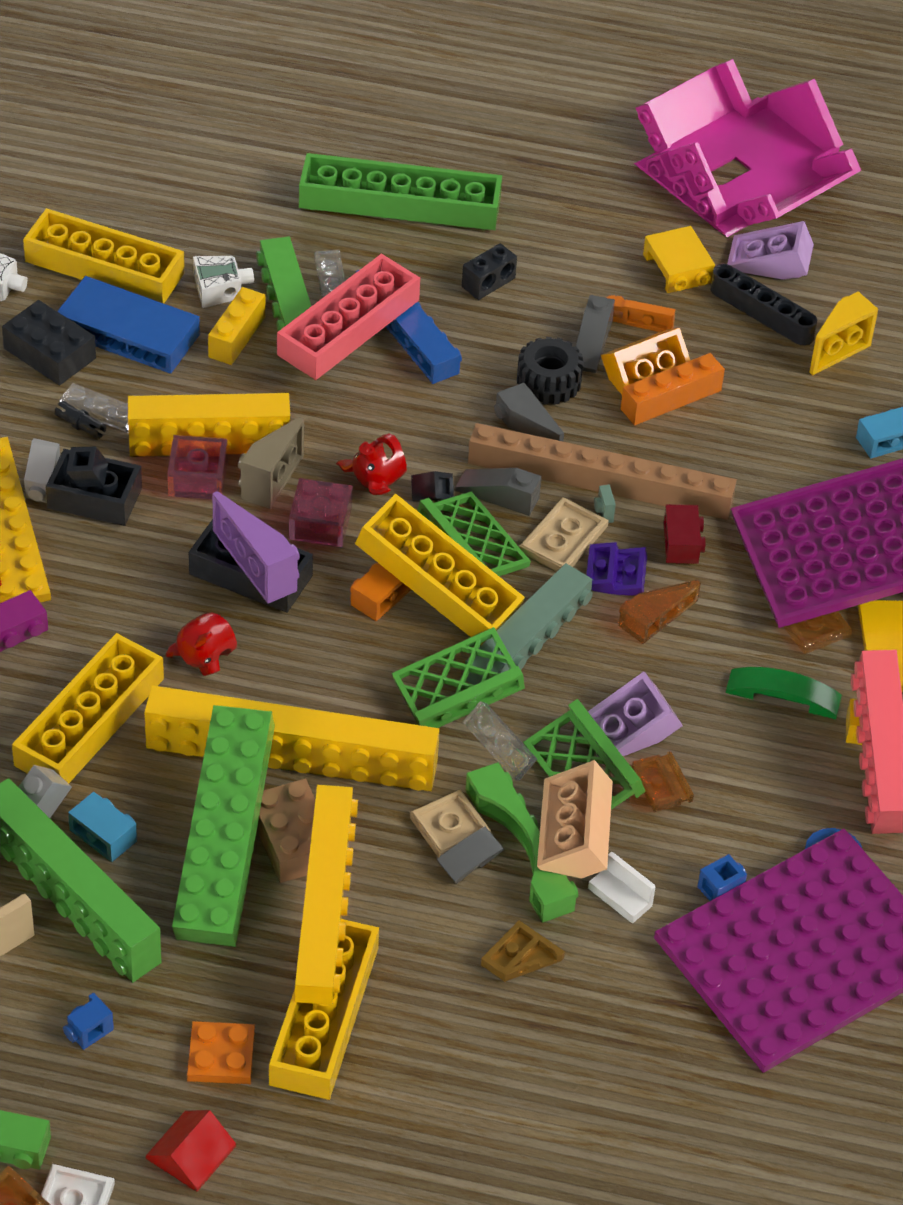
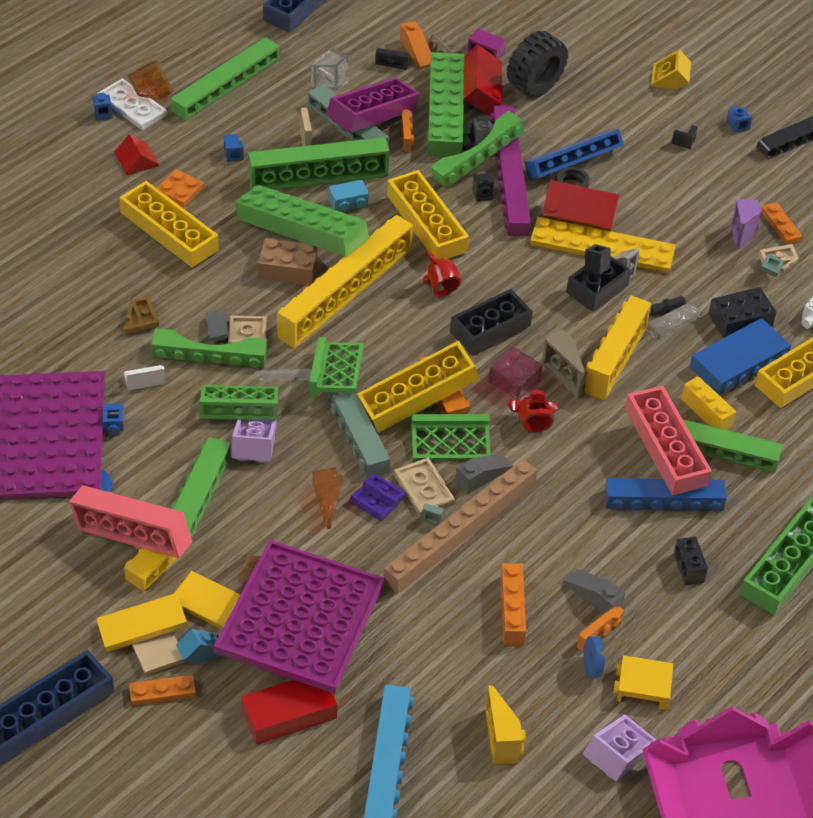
camera: 120 degrees right, 0 degrees up
(45, 788) = (378, 169): light grey slope -> none
(197, 466) = (587, 329): clear pink brick -> none
(219, 279) = (761, 416): white torso -> none
(256, 548) = (483, 297): medium lavender slope -> none
(324, 897) = (225, 233): yellow brick -> none
(329, 270) = (734, 476): clear plate -> none
(432, 485) = (504, 437): black panel -> none
(525, 413) = (539, 513): dark grey slope -> none
(550, 369) = (570, 555): black tyre -> none
(575, 821) = (193, 362): light nougat slope -> none
(645, 358) = (547, 605): light orange slope -> none
(663, 781) = (198, 429): clear orange plate -> none
(682, 534) = (378, 536): dark red brick -> none
(691, 296) = (593, 660): none -> blue tile
(755, 734) = (202, 481): none -> bright green brick
(763, 304) = (575, 702): black beam -> none
(787, 686) = (219, 525): green slope -> none

